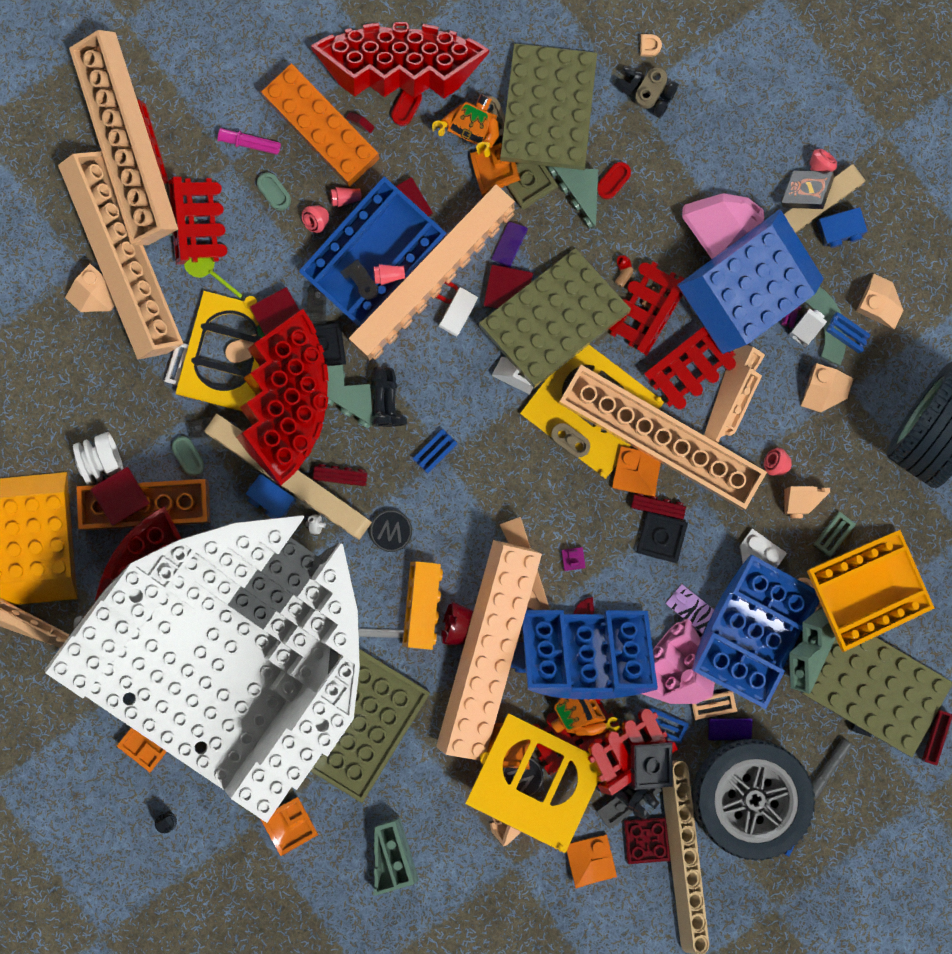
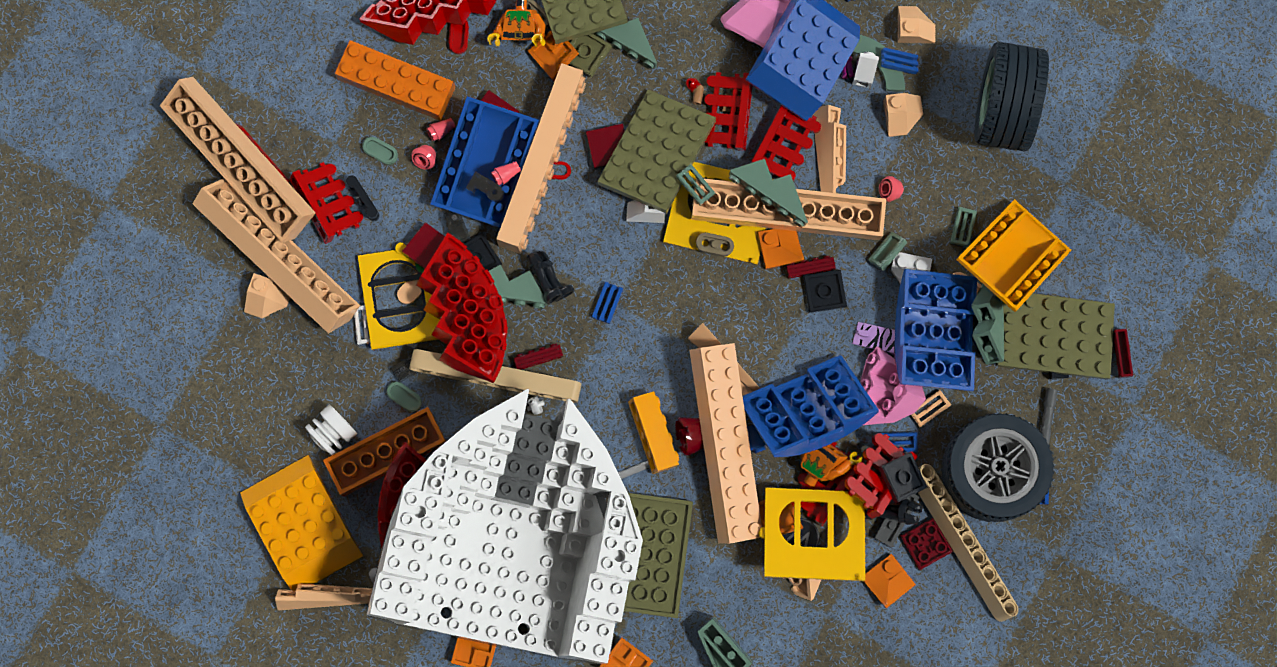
camera: 25 degrees left, 5 degrees down
(120, 496) = (363, 451): dark red tile -> none
(203, 268) = (349, 237): lime piece -> none
(234, 233) = (363, 198): none -> black plate
(248, 141) = (341, 119): dark pink axle -> none
(270, 496) = (485, 398): blue brick -> none
(360, 122) = (426, 63): dark red tile -> none
(391, 531) = (600, 383): black tile -> none
(458, 311) = (575, 181): white slope -> none
(509, 244) = (593, 109): dark purple slope -> none
(568, 373) = (685, 172): none -> sand green tile
(573, 559) = (760, 340): magenta tile -> none
(585, 607) = (788, 374): dark red tile -> none
(613, 180) = (654, 22): red tile -> none
(657, 417) = (776, 192): none -> sand green slope
(729, 728) = (951, 421): dark purple slope -> none
(744, 525) = (887, 251): none -> sand green tile
(802, 500) = (924, 209): light nougat slope -> none

